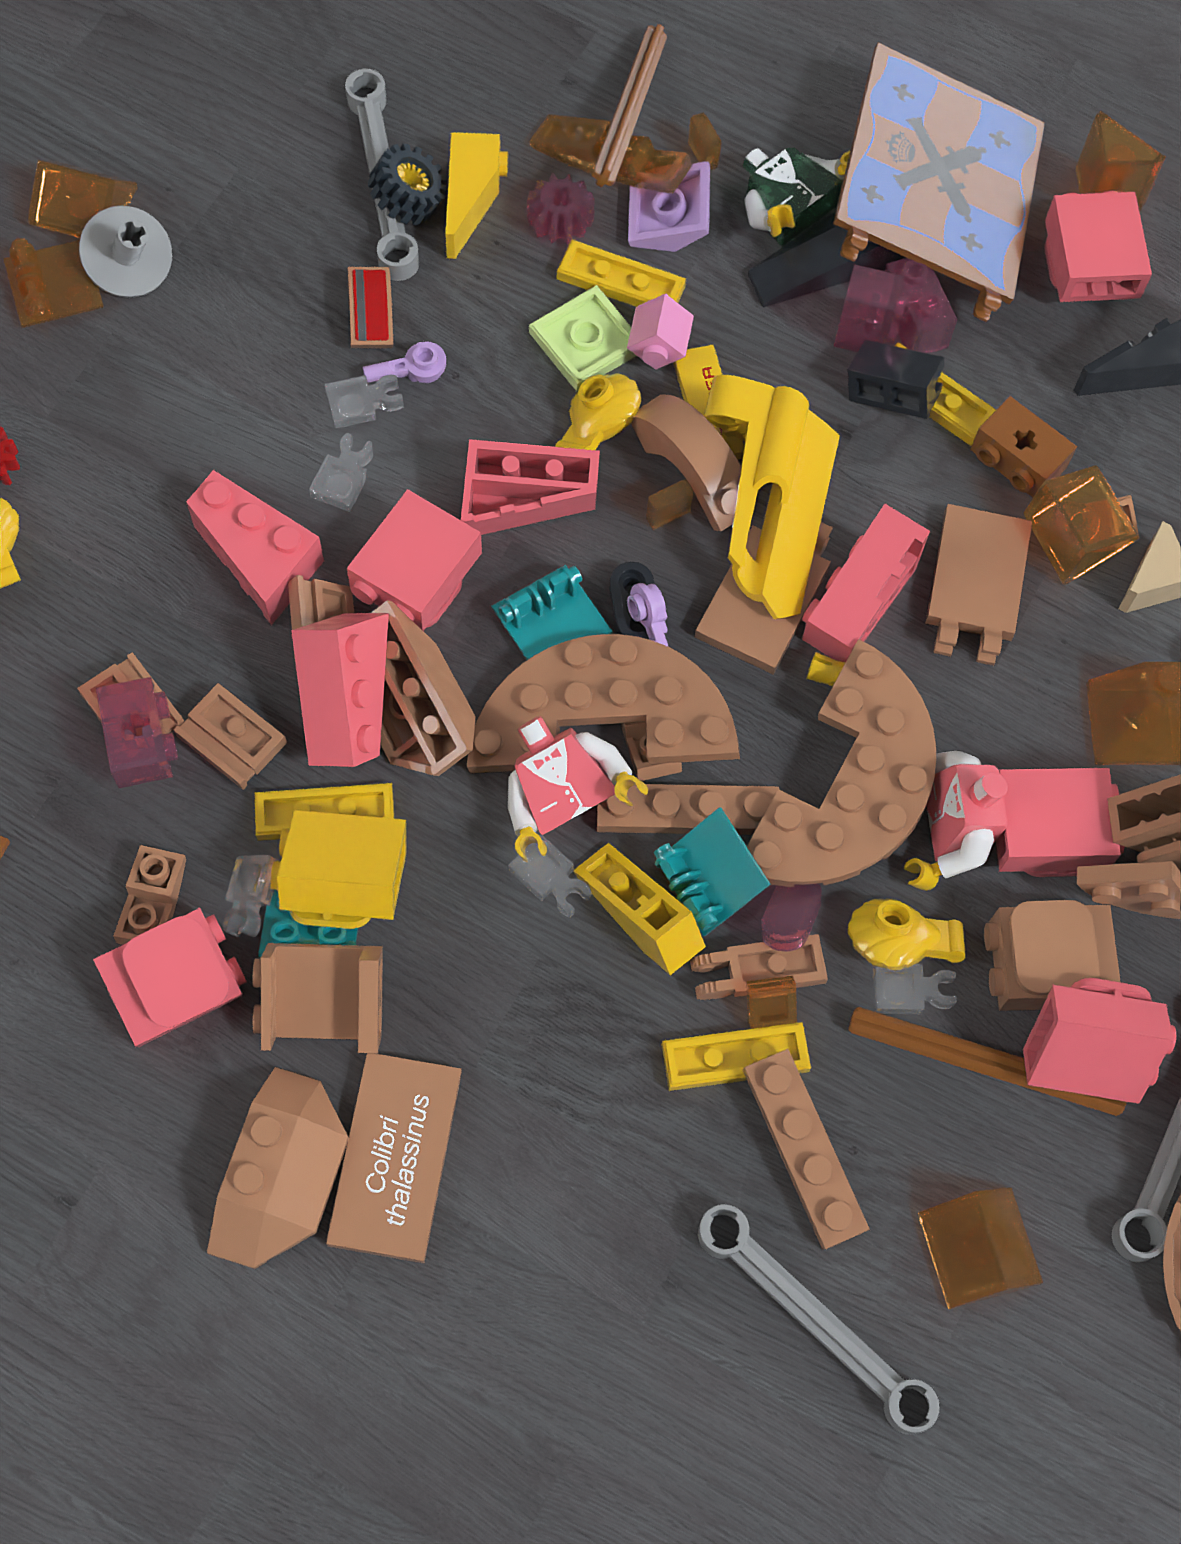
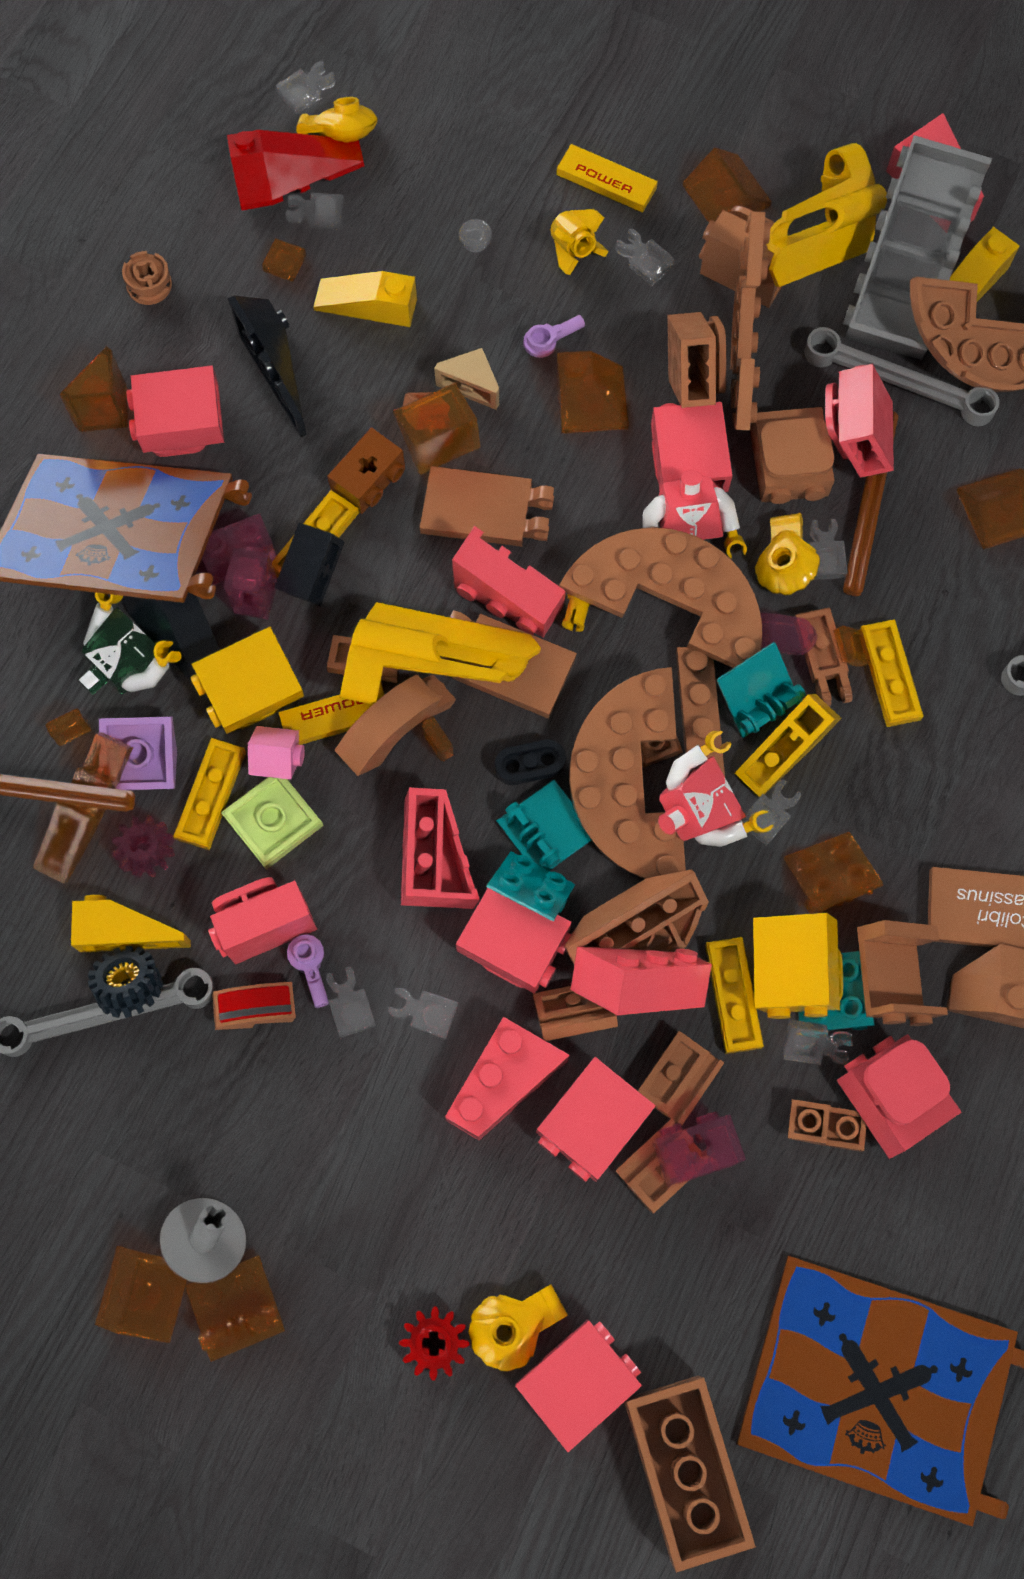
camera: 90 degrees left, 5 degrees up
(189, 629) = (594, 1120): none -> coral brick
(462, 306) = (259, 918): none -> coral brick
(465, 942) = (833, 872): none -> clear orange hinge
(472, 581) = (531, 885): none -> teal hinge
(601, 410) = (349, 798): yellow animal -> none
(649, 608) = (544, 744): lavender plate -> none
(746, 303) = (246, 681): none -> yellow brick
(805, 1149) = (955, 621): nougat plate -> none

